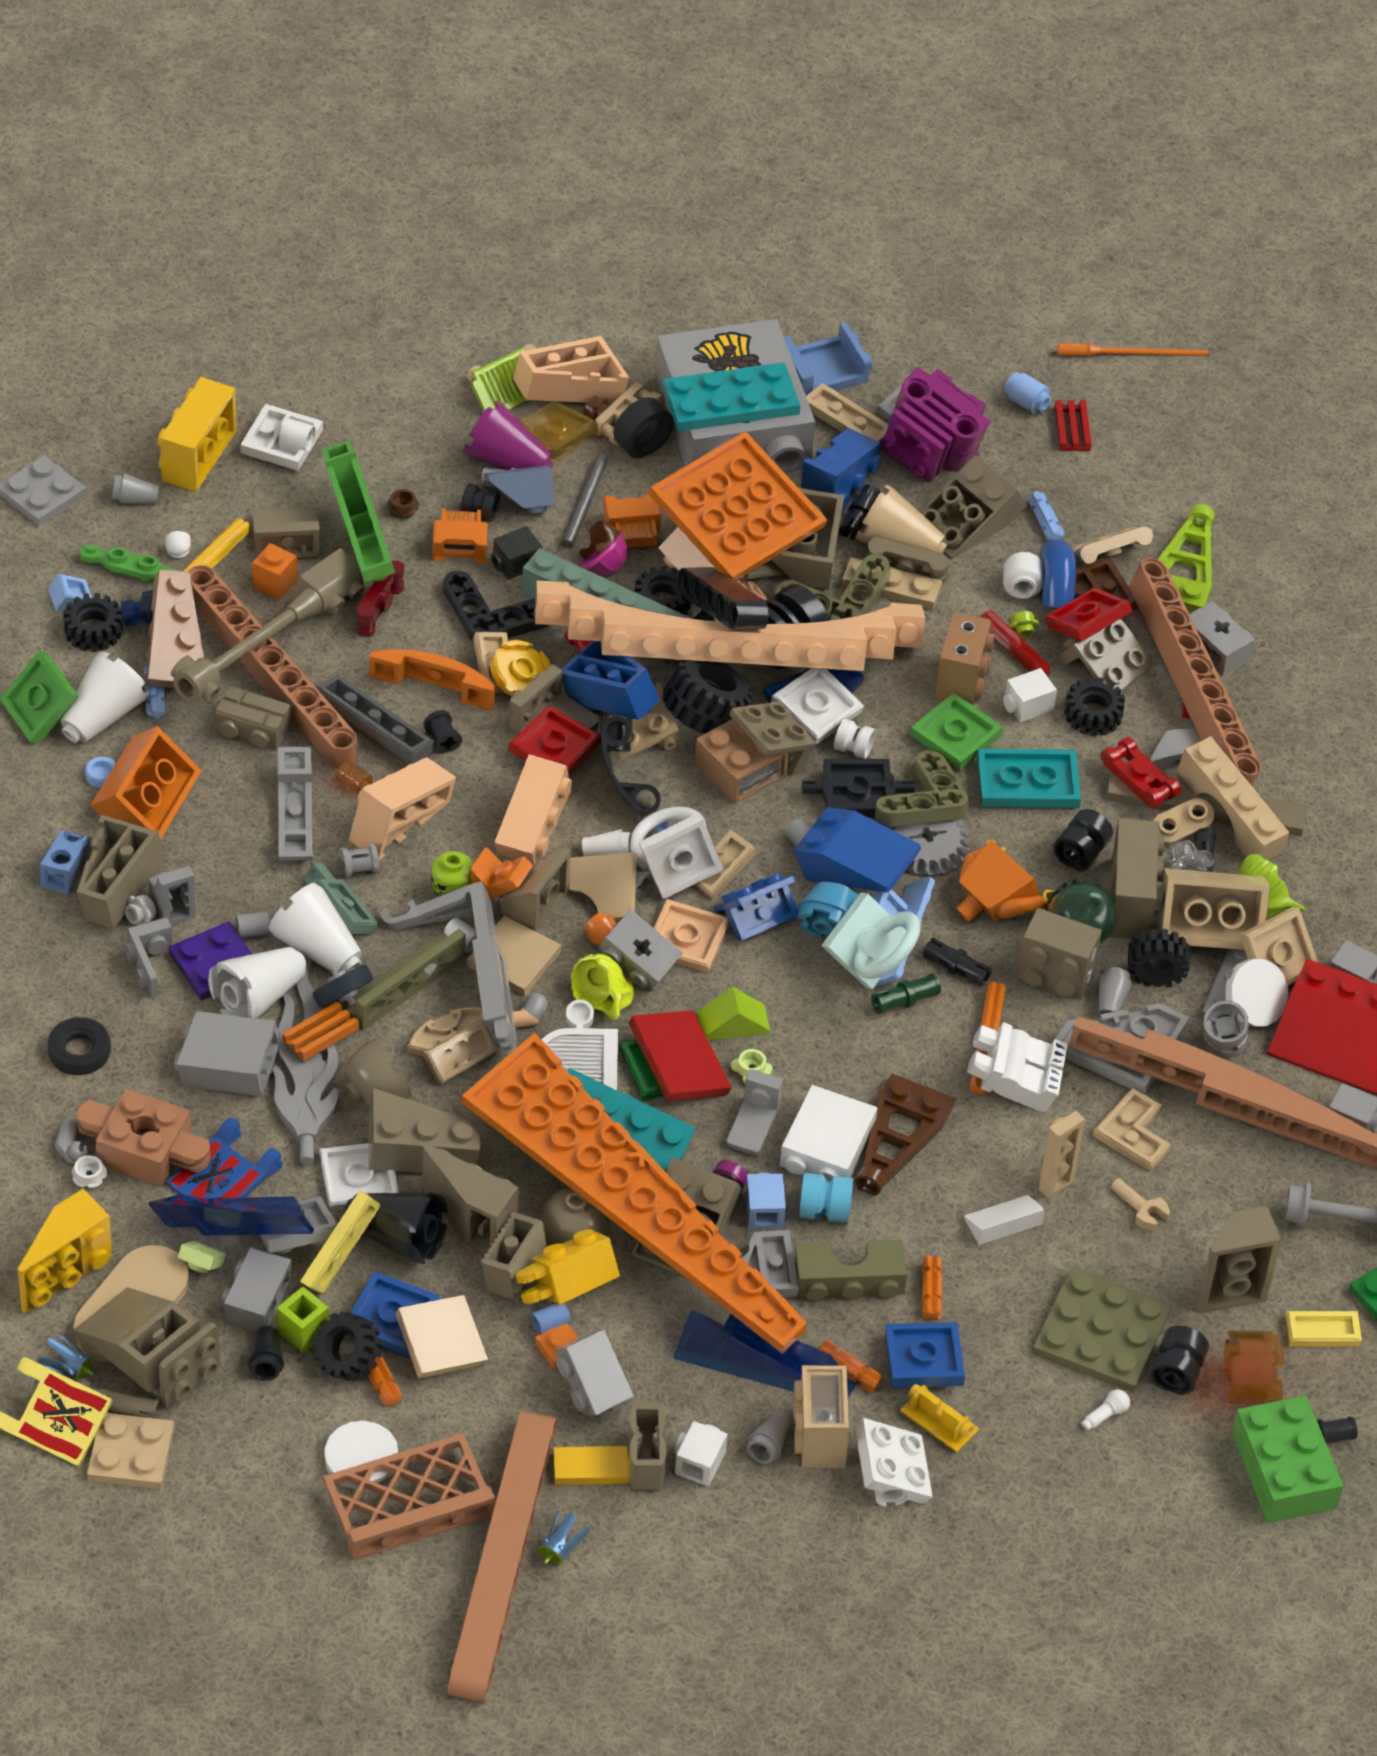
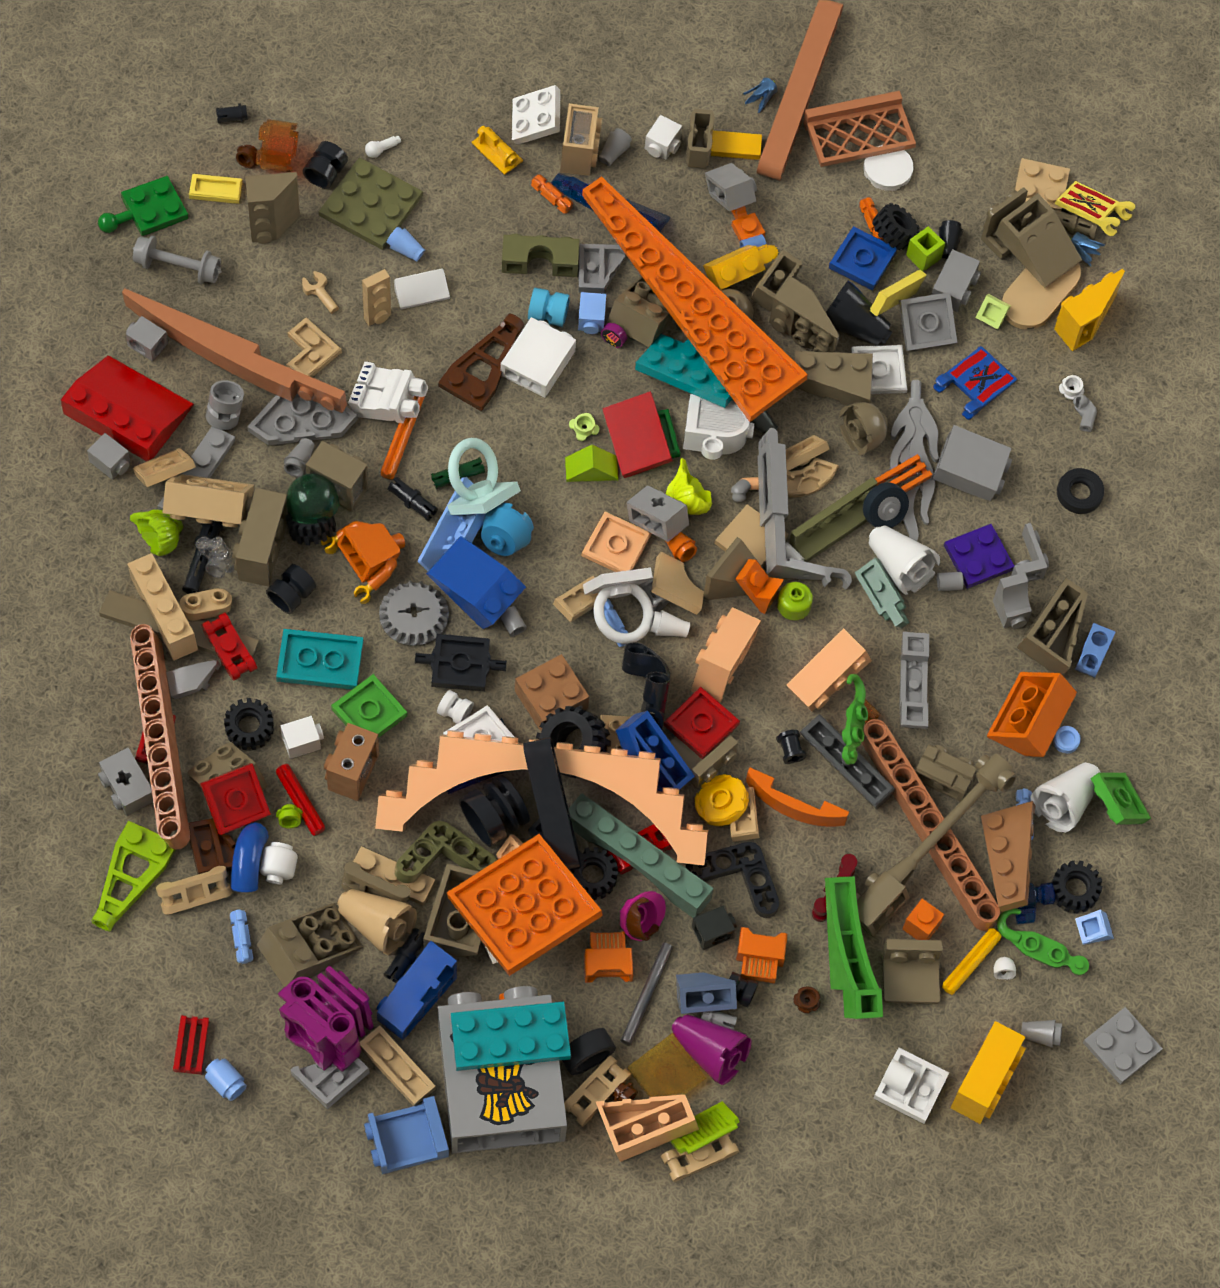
camera: 175 degrees left, 15 degrees up
(131, 1150) = (1028, 411): nougat brick -> none
(140, 909) = (1037, 599): white plate -> none
(234, 1215) = (973, 320): clear blue wedge -> none
(255, 981) = (949, 517): white cone -> none
(359, 860) = (866, 629): light grey bush -> none
(366, 748) = (856, 718): none -> bright green piece
(441, 1336) = (830, 232): tile -> none
(757, 1112) = (589, 381): light grey bracket -> none
(759, 906) = (561, 557): blue bracket -> none
(776, 732) = (526, 696): dark tan bracket -> none
(924, 1355) = (499, 189): blue plate -> none
(931, 1287) = (484, 243): orange axle -> none
(942, 802) = (397, 639): olive beam -> none
(1041, 1271) = (405, 244): none -> light blue cone
(1088, 350) = (154, 1137): orange piece -> none
(1147, 948) = (260, 469): black tyre -> none
(1259, 990) = (191, 435): white tile -> none
(1287, 1459) = (269, 88): bright green brick -> none
(1293, 1372) = (246, 155): none -> reddish brown plate

